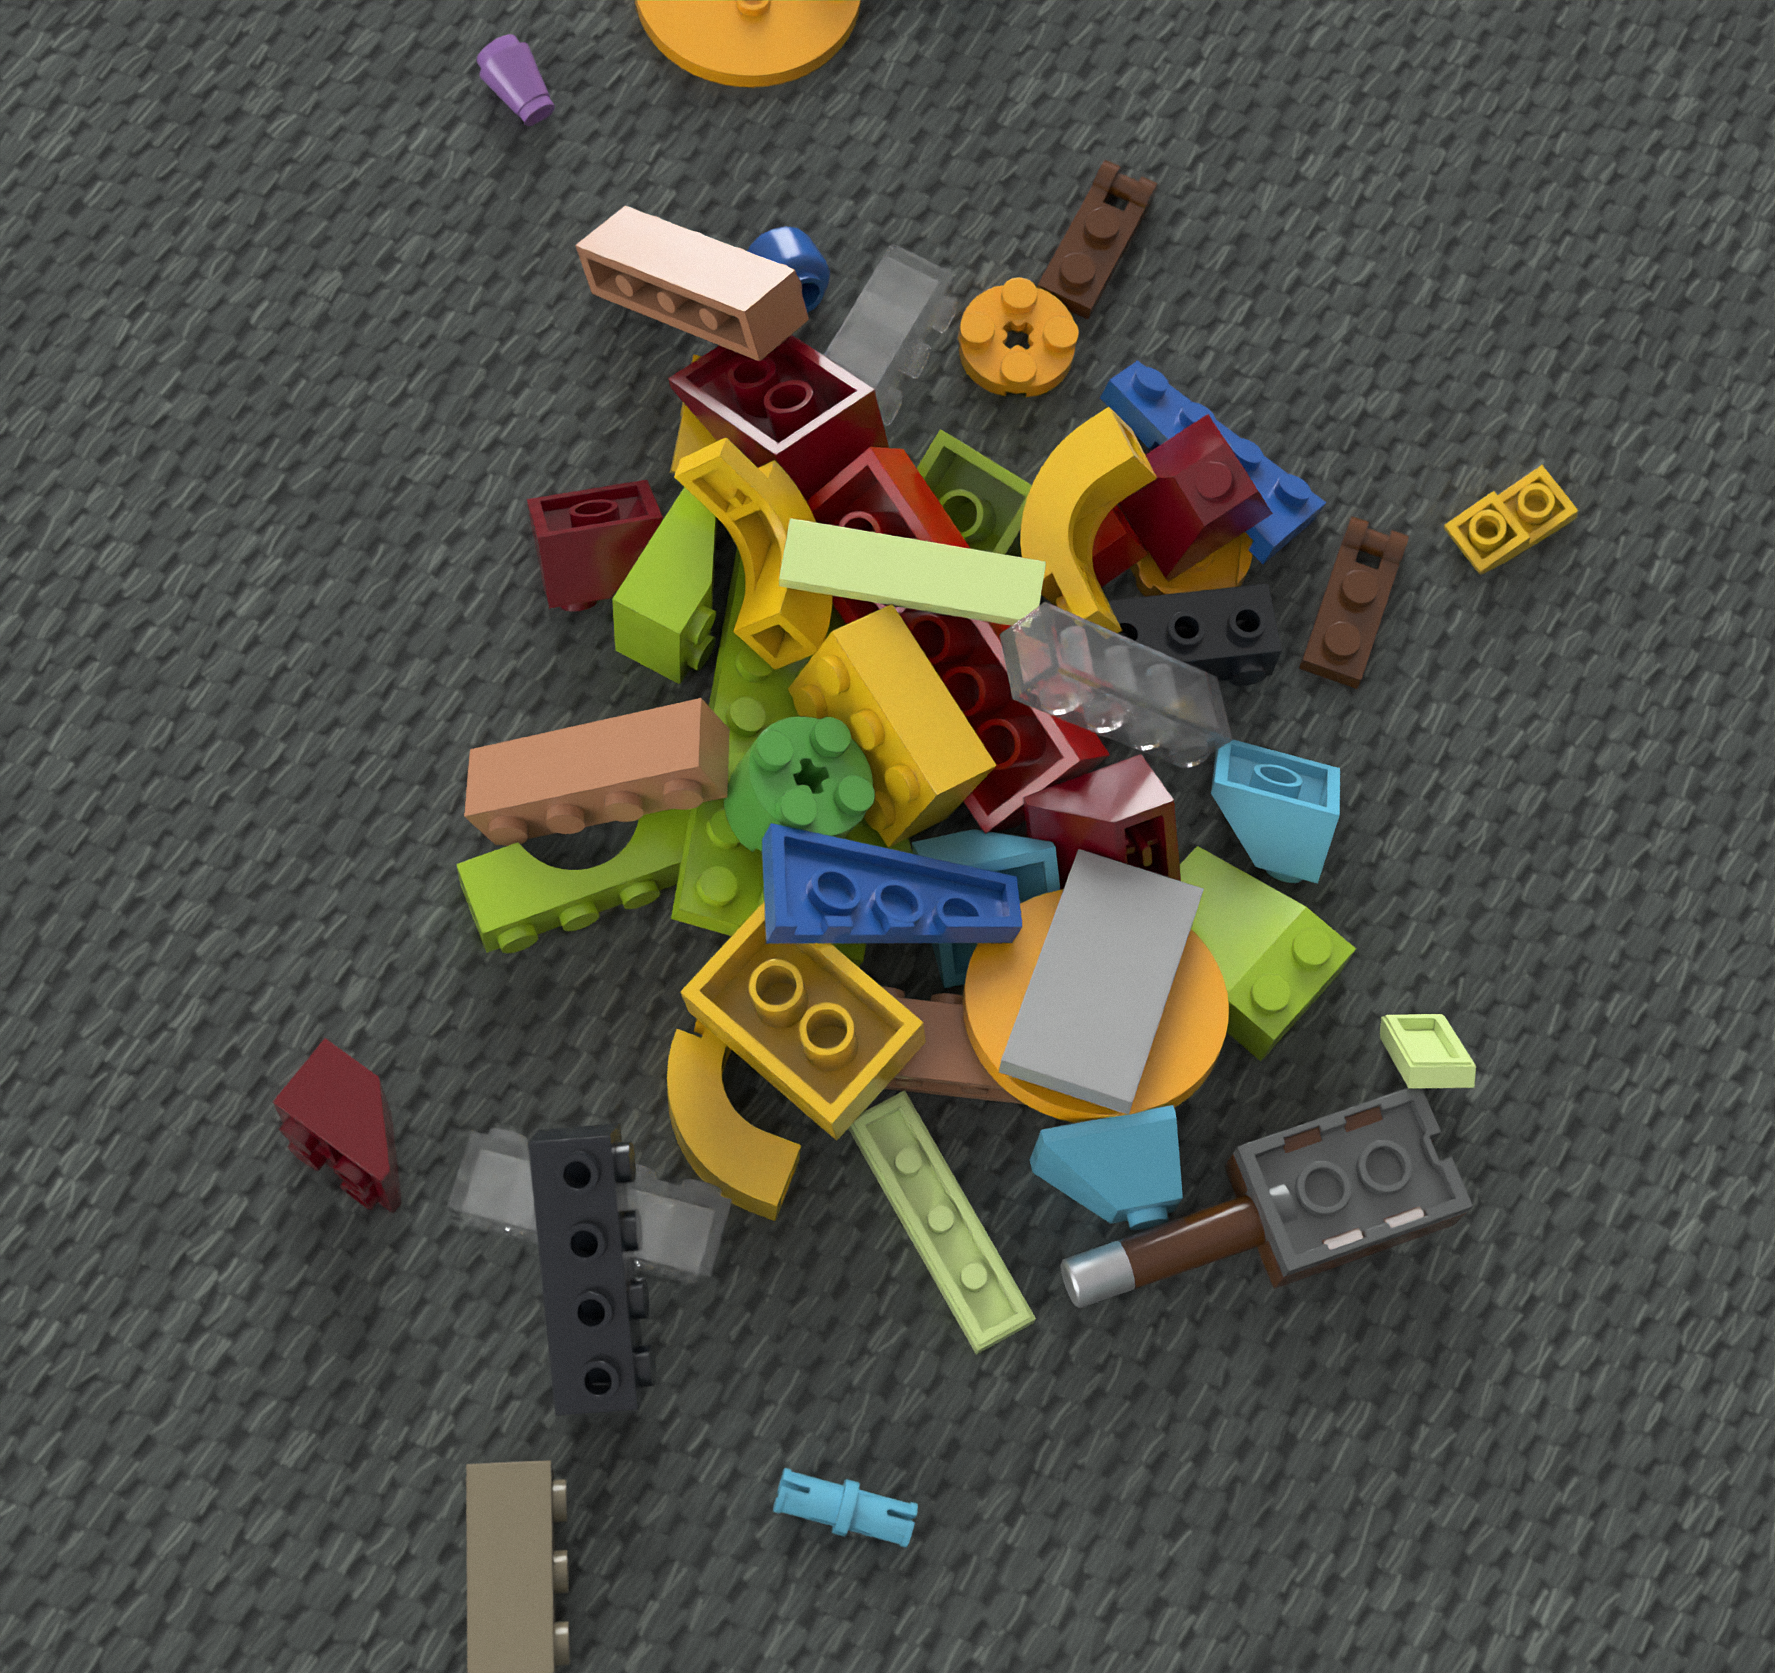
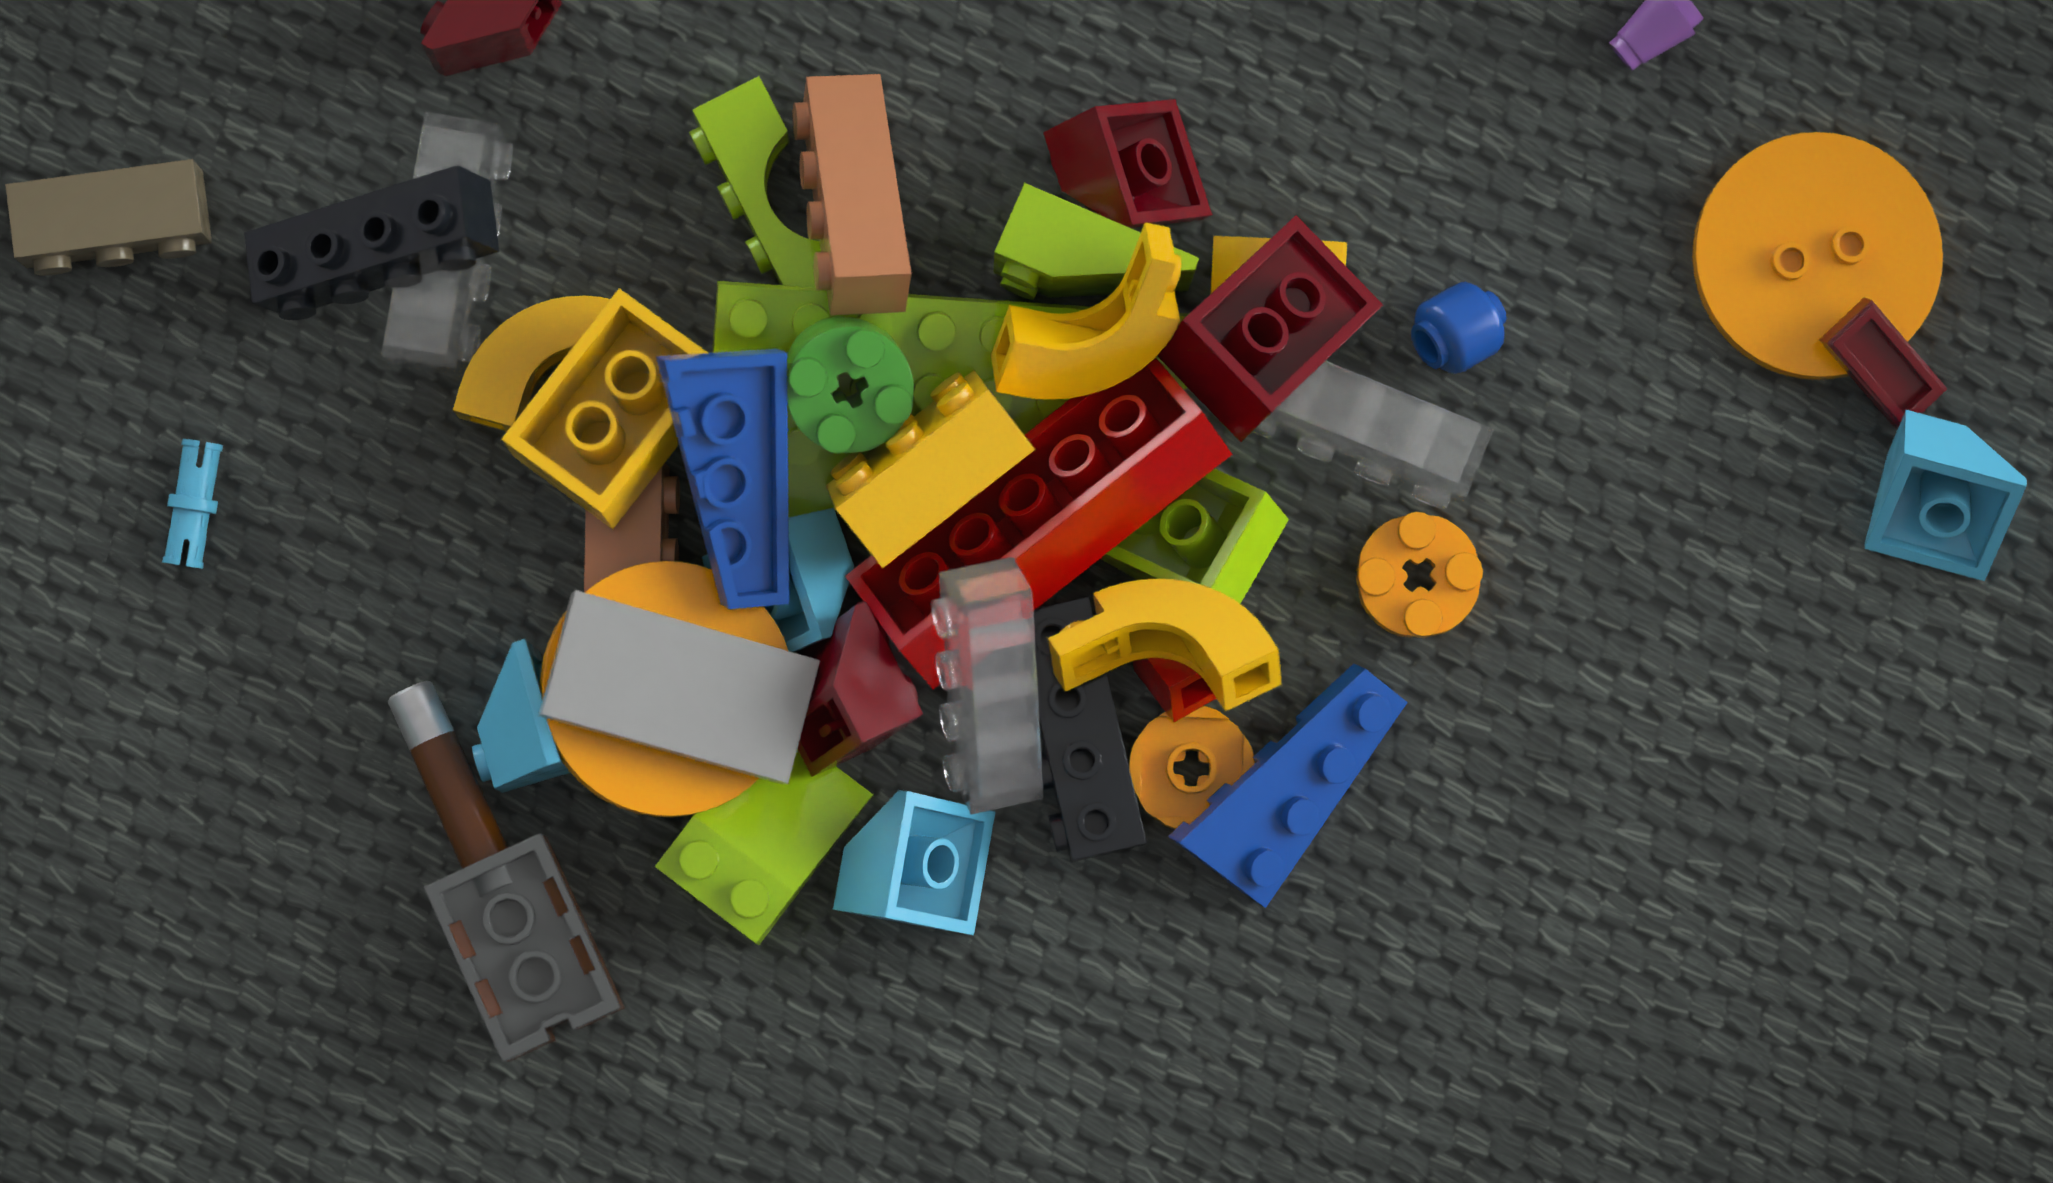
camera: 85 degrees right, 15 degrees up
(693, 282) = (1406, 227): nougat brick -> none
(910, 573) = (1066, 465): yellowish green tile -> none
(941, 1222) = (467, 571): yellowish green tile -> none
(1097, 239) = (1549, 651): reddish brown plate -> none
(1196, 500) = (1231, 759): dark red slope -> none
(1353, 604) = (1156, 941): reddish brown plate -> none
(1427, 1051) = (664, 1020): yellowish green tile -> none
(1512, 521) = (1270, 1104): yellow slope -> none

